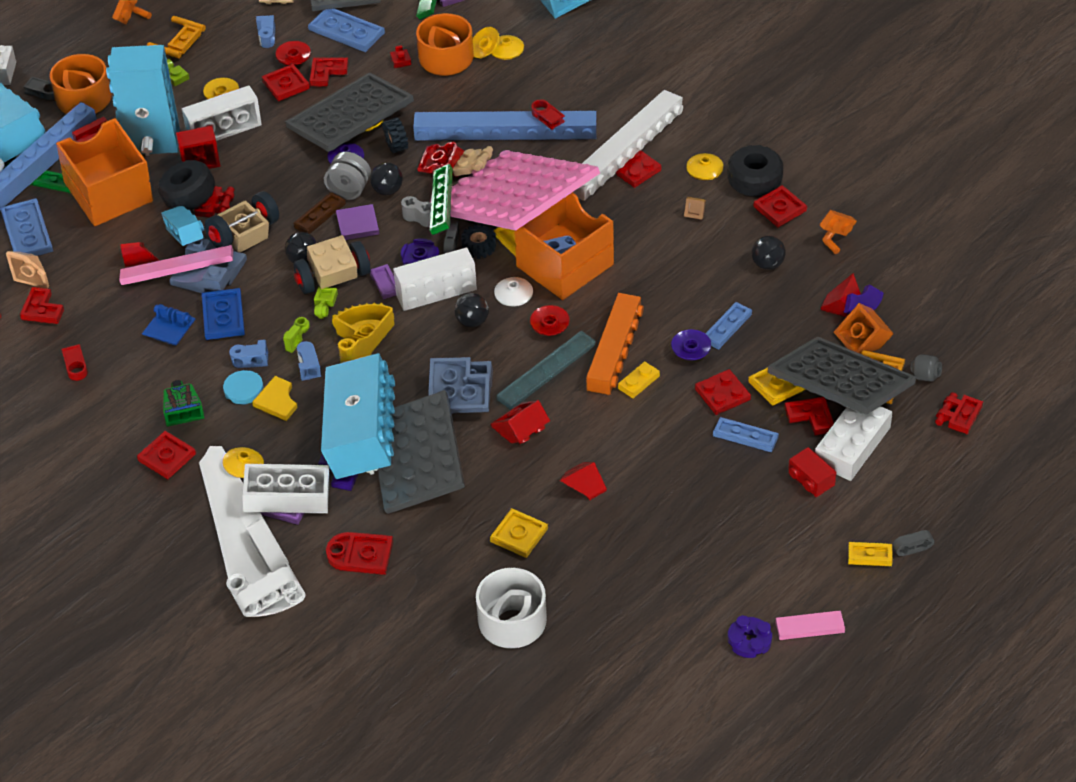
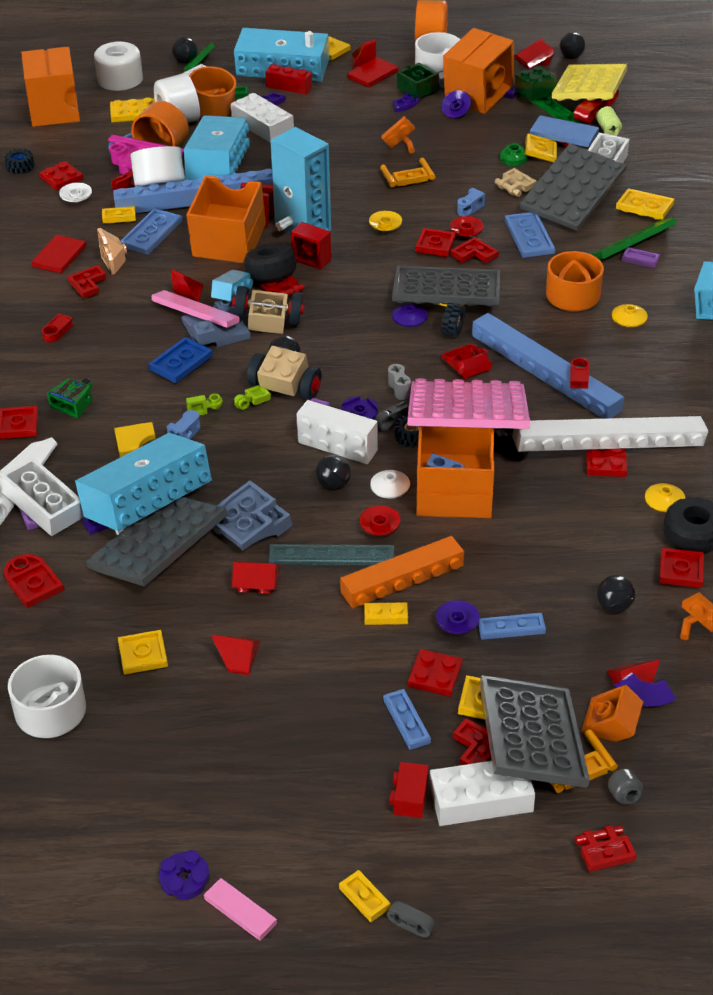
camera: 45 degrees right, 5 degrees down
(168, 324) = (140, 344): blue hinge -> none
(177, 74) = (375, 194): lime plate -> none
(226, 113) = (358, 234): white brick -> none
(236, 458) = (55, 461): yellow dish -> none
(243, 387) = (125, 414): medium azure tile -> none
(249, 355) = (157, 398): medium blue leg -> none
(319, 213) = (336, 339): reddish brown tile -> none
(347, 175) = (379, 323): light grey wheel -> none
(357, 222) = (351, 362): medium lavender tile -> none
(362, 329) = (241, 436): yellow arm -> none
(386, 178) = (405, 344): black piece -> none
(400, 57) = (538, 274): red tile -> none
(441, 199) = (415, 380): green tile -> none
(472, 160) = (483, 373): tan plate -> none
(485, 42) = (611, 300): yellow dish -> none
(694, 208) = (607, 520): medium nougat tile -> none

